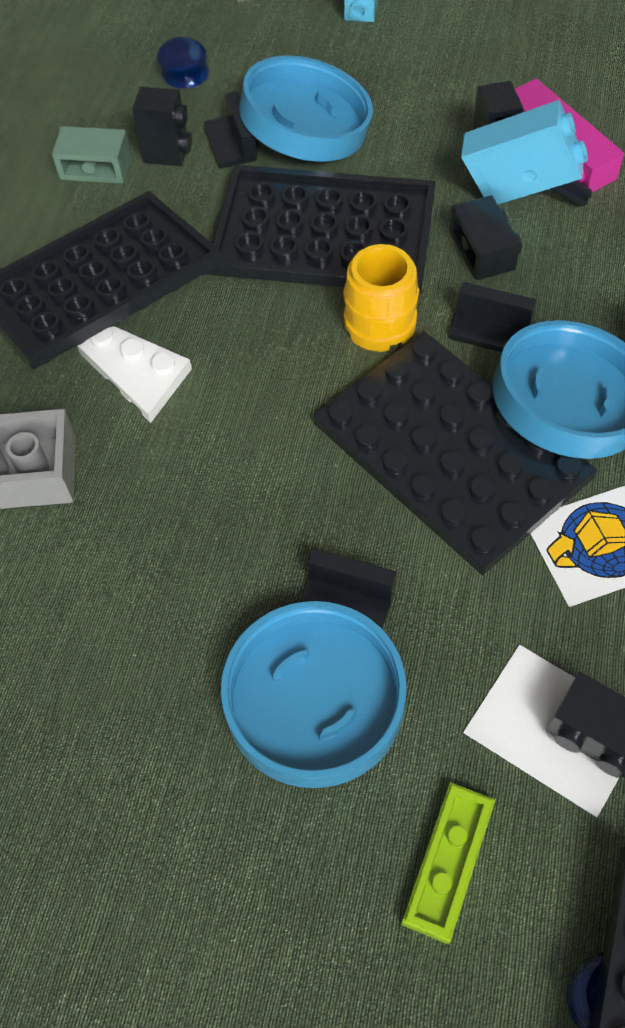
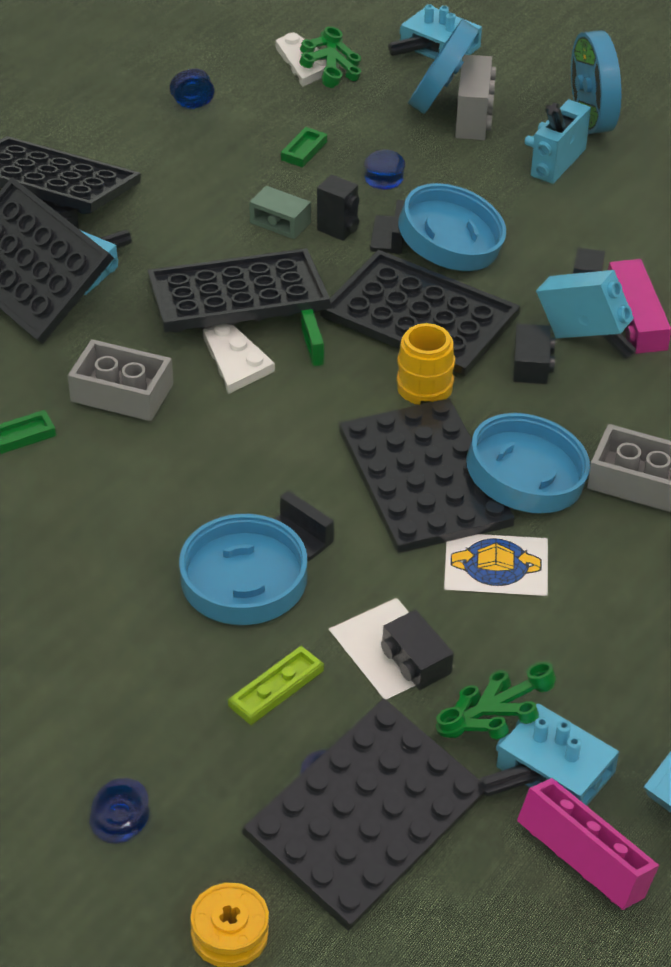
camera: 20 degrees right, 15 degrees down
(75, 64) = (304, 147): none -> green tile
(218, 307) = (312, 337): none -> green tile
(489, 316) = (501, 398): black panel -> none

